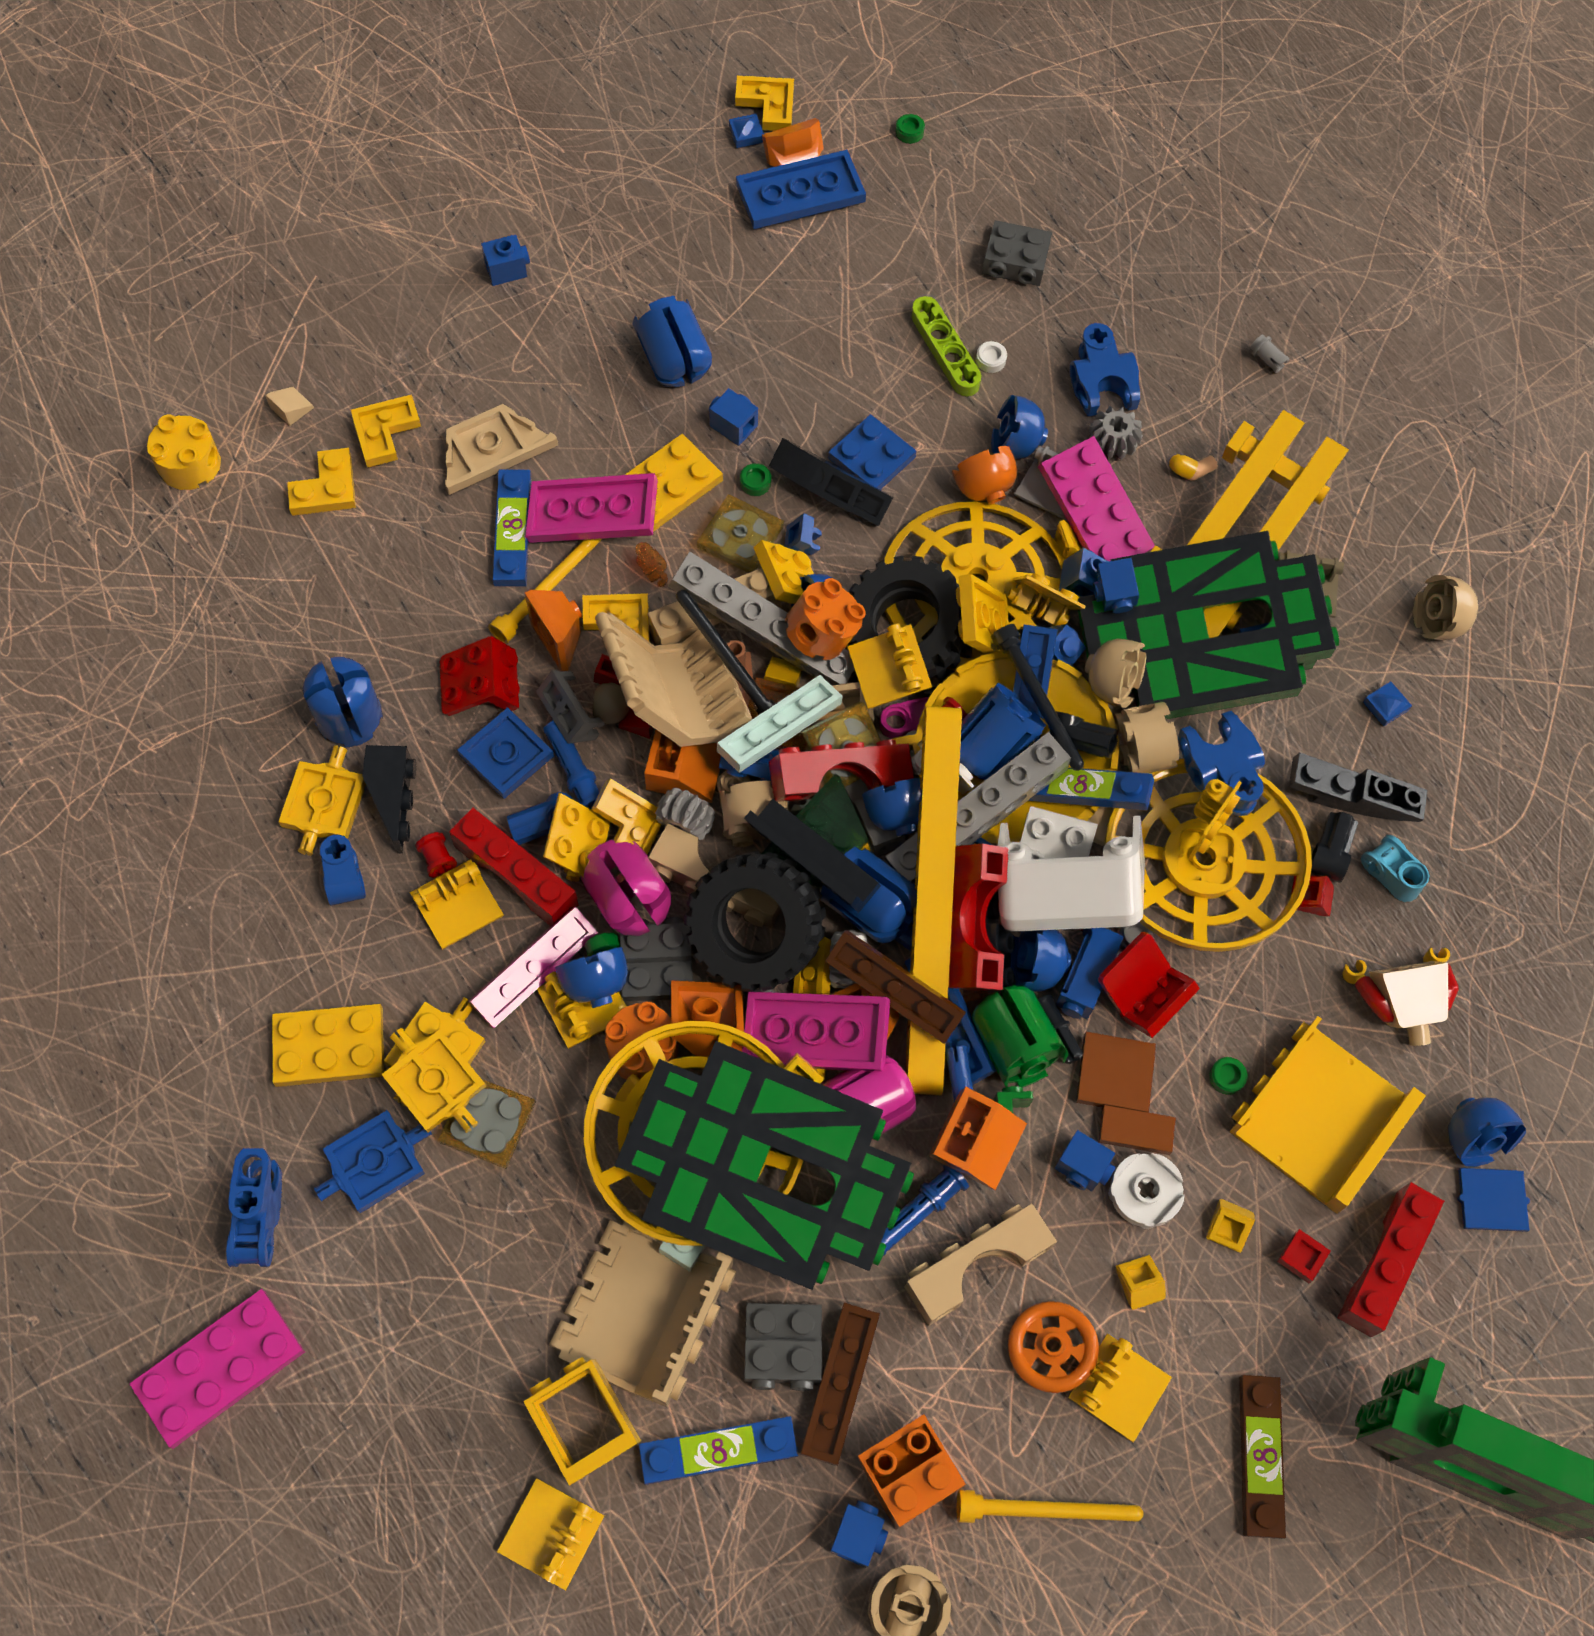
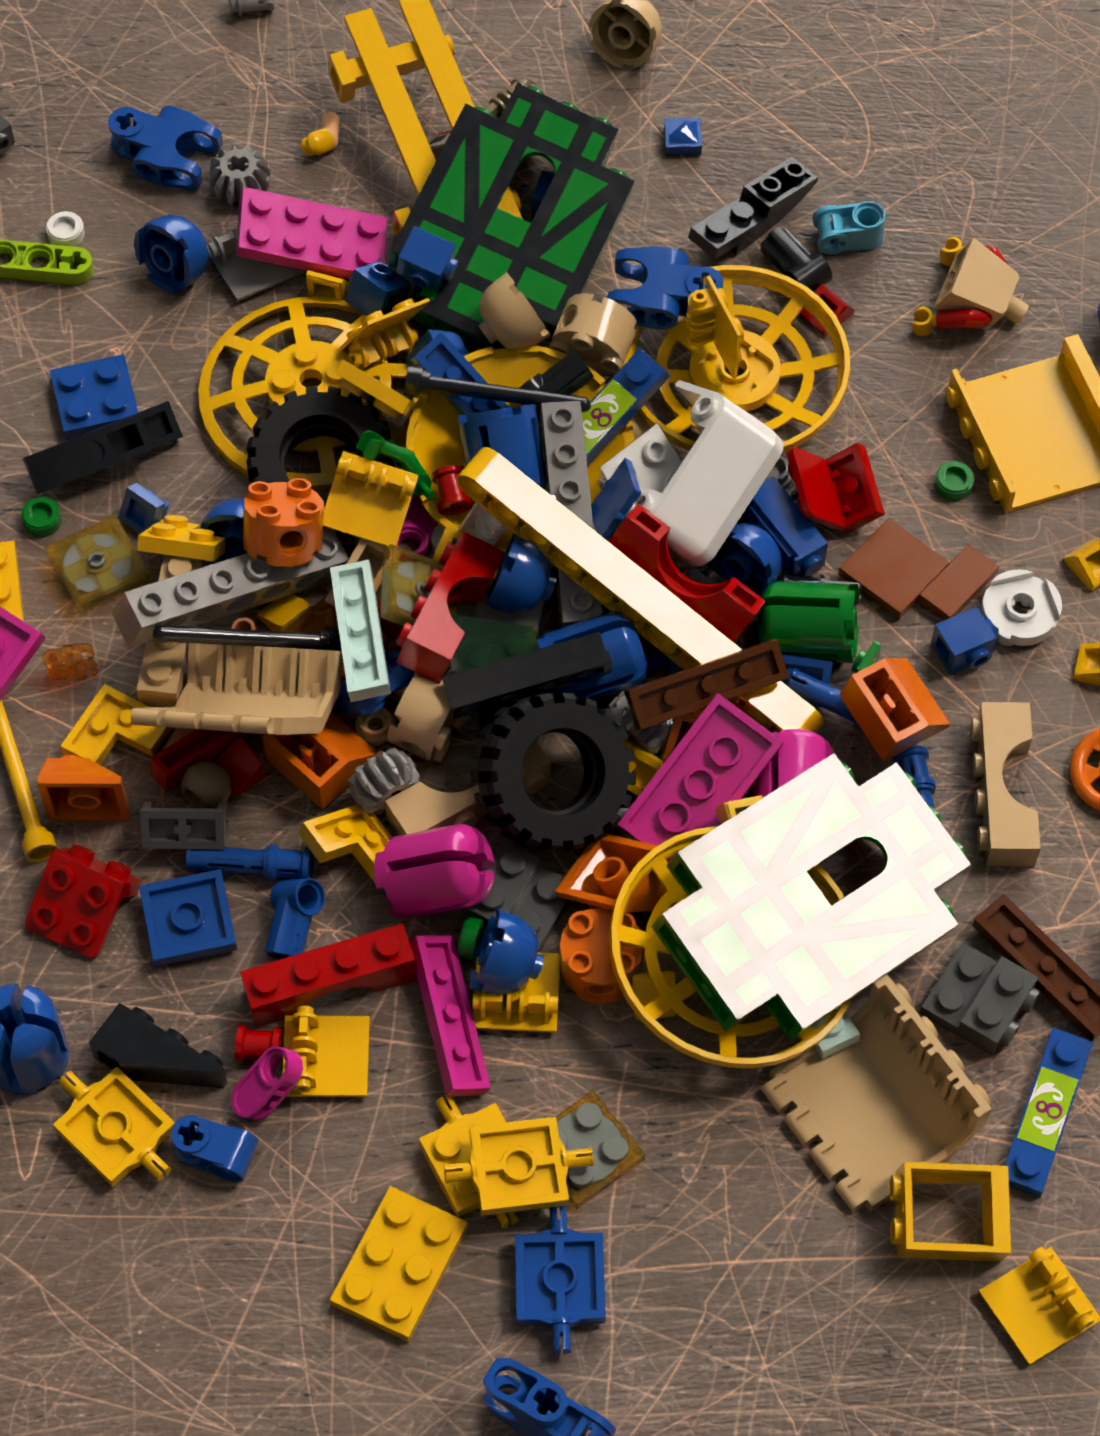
camera: 55 degrees left, 5 degrees down
(405, 876) = (260, 1090): none -> dark pink piece
(573, 836) = (344, 895): yellow hinge -> none
(931, 640) = (374, 444): none -> green piece
(987, 475) = (208, 307): orange cylinder -> none
(1001, 830) = (615, 499): none -> blue piece

